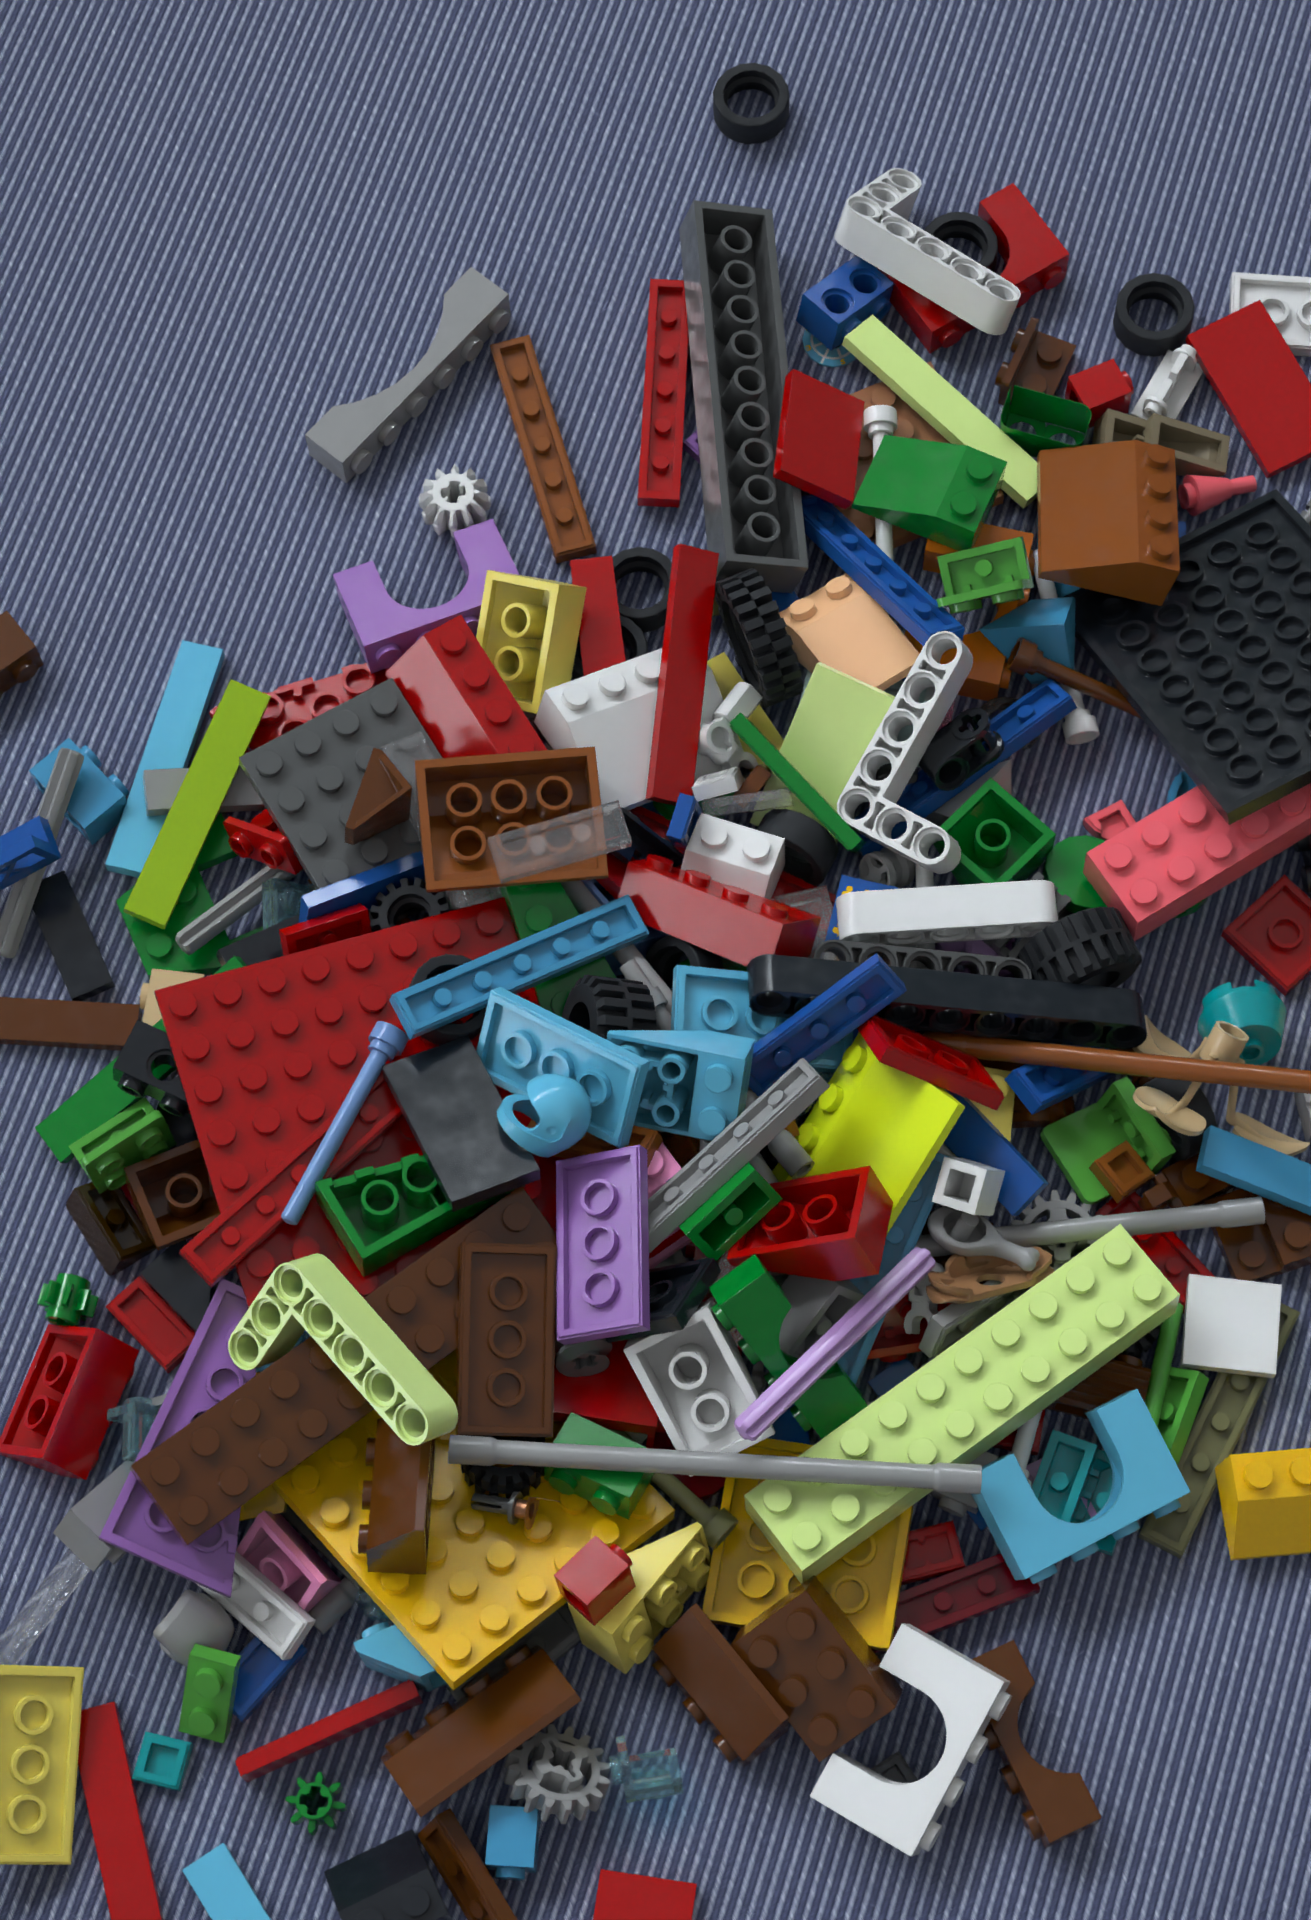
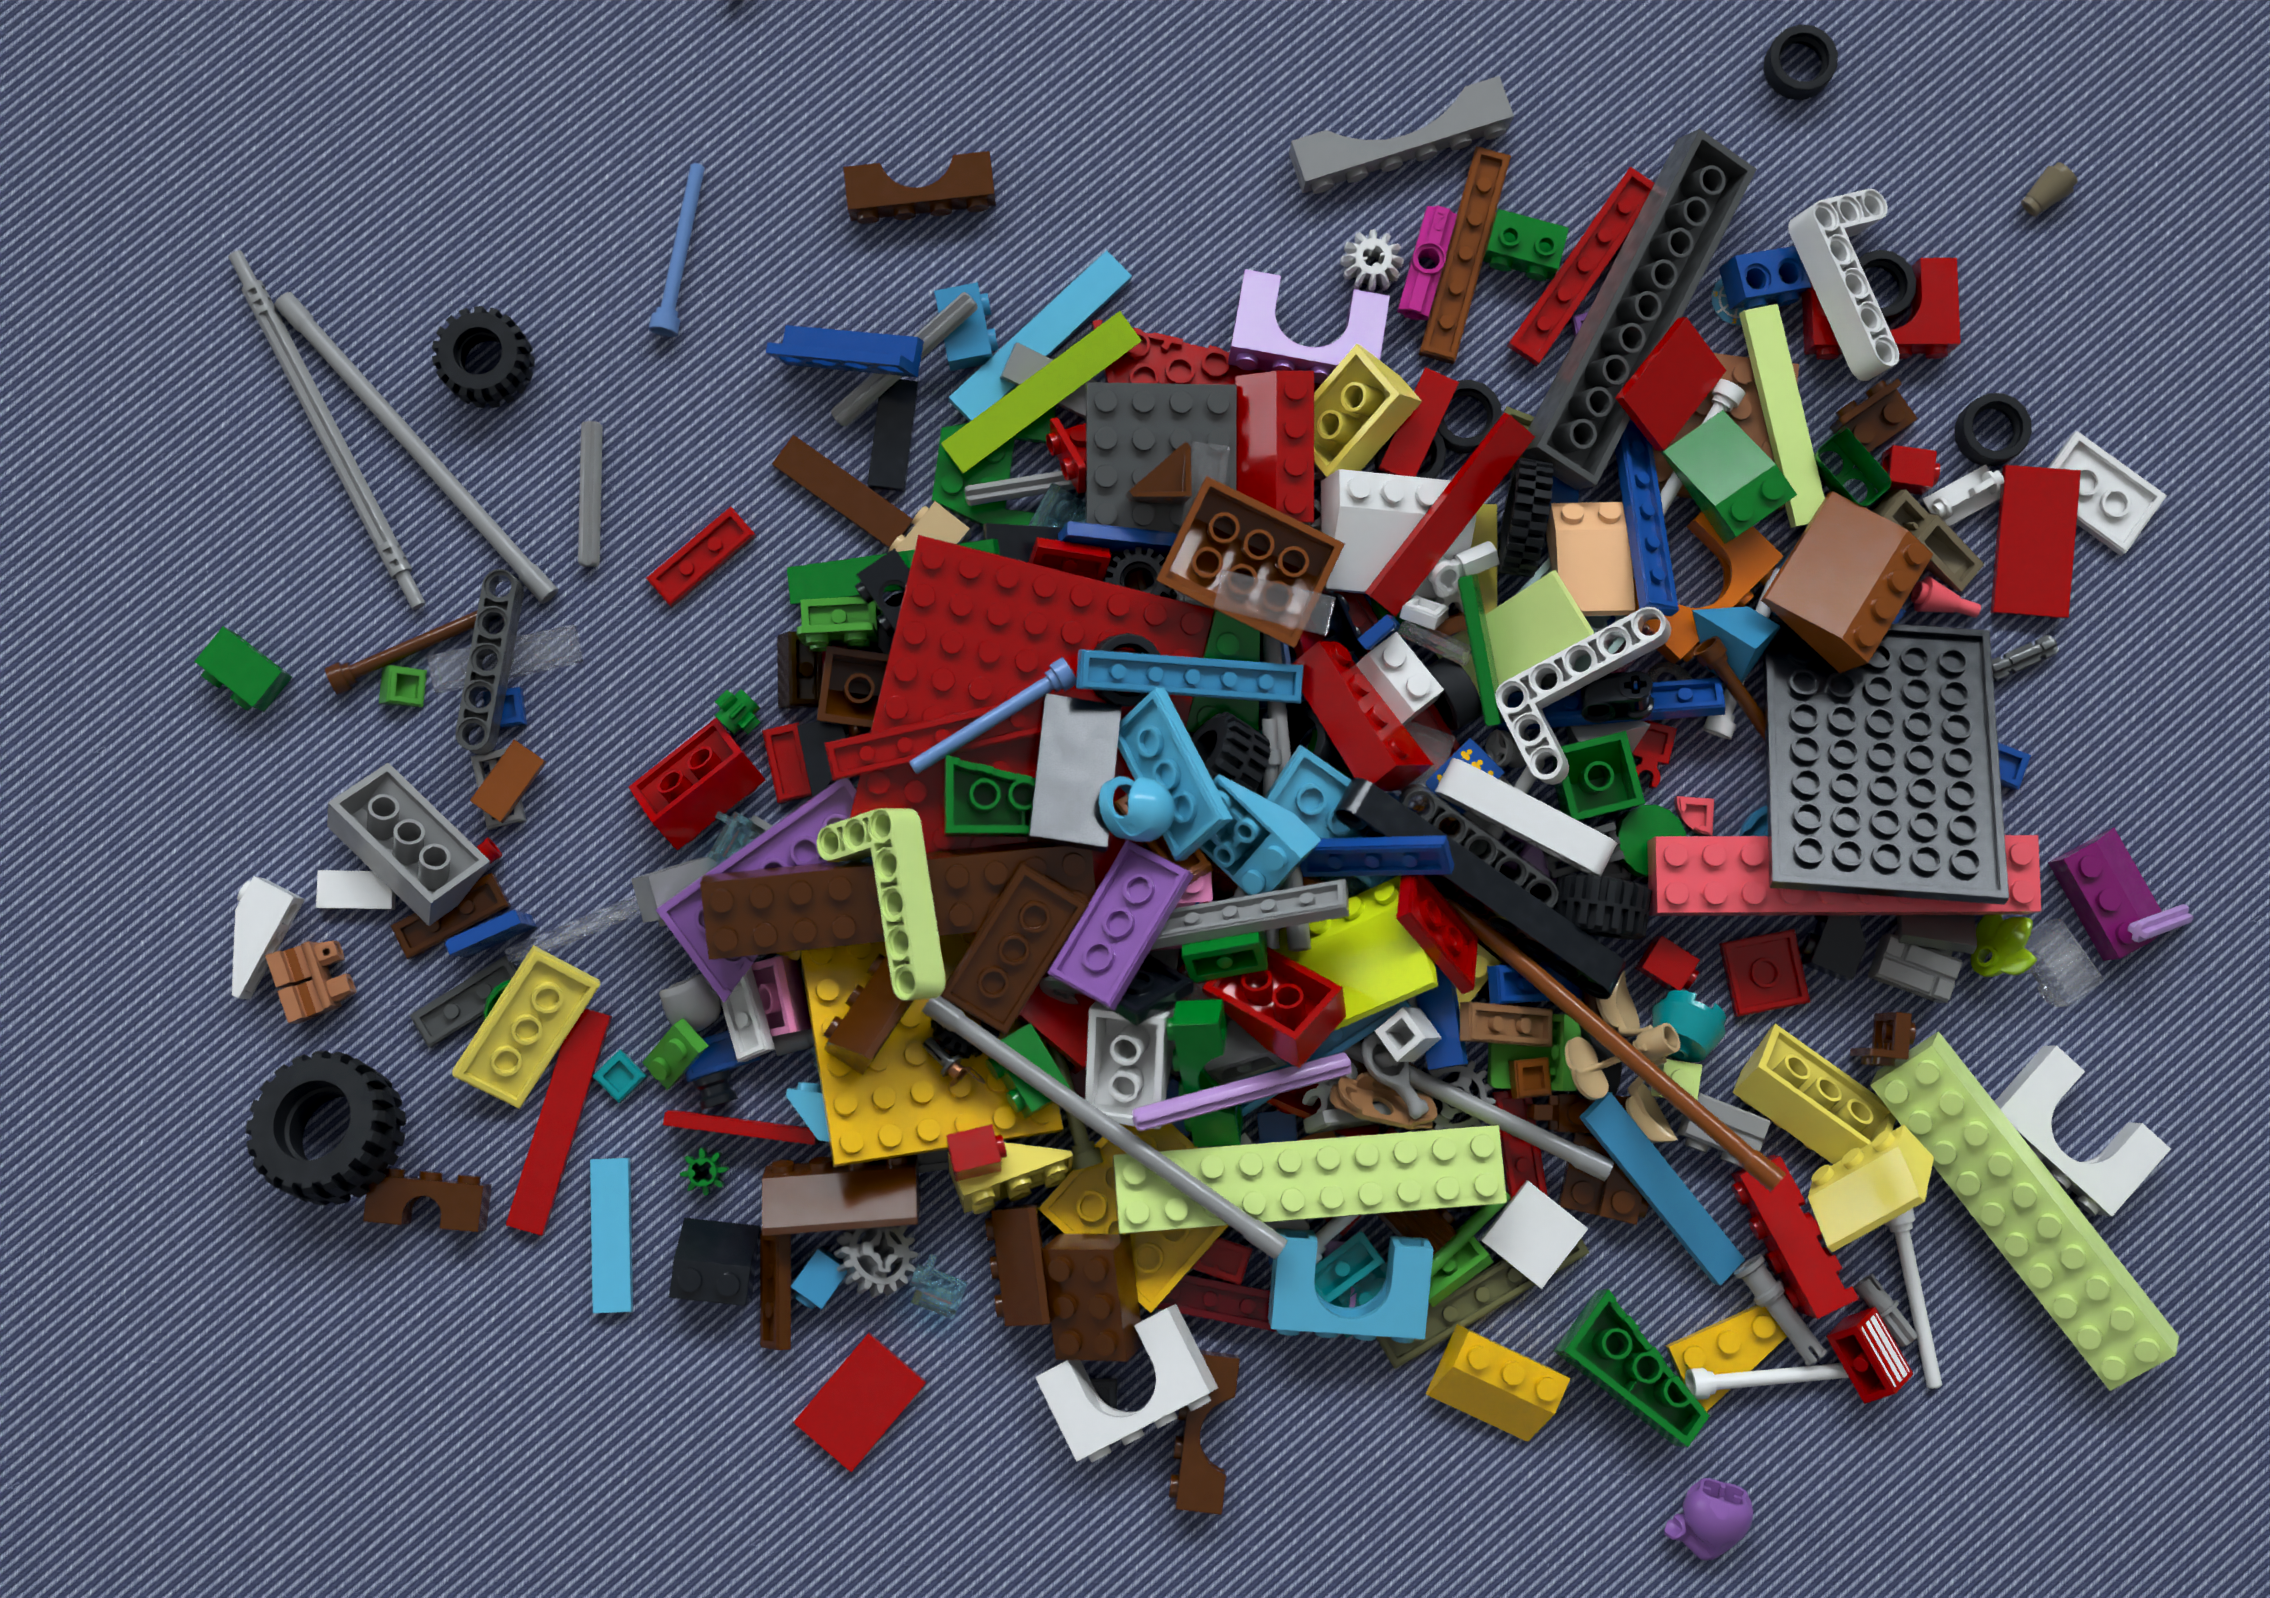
camera: 20 degrees right, 15 degrees up
(276, 1708) = (715, 1089): none -> black wheel
(514, 491) = (1431, 243): none -> dark pink piece
(595, 403) = (1525, 245): none -> green brick
(985, 572) = (1722, 573): bright green bracket -> none
(1033, 786) = (1654, 749): none -> red plate
(1059, 79) = (2049, 189): none -> dark tan cone
(1061, 1126) = (1505, 1024): none -> medium nougat tile
(1183, 980) = (1668, 964): none -> red brick
(1265, 1102) = (1684, 1074): none -> yellowish green brick

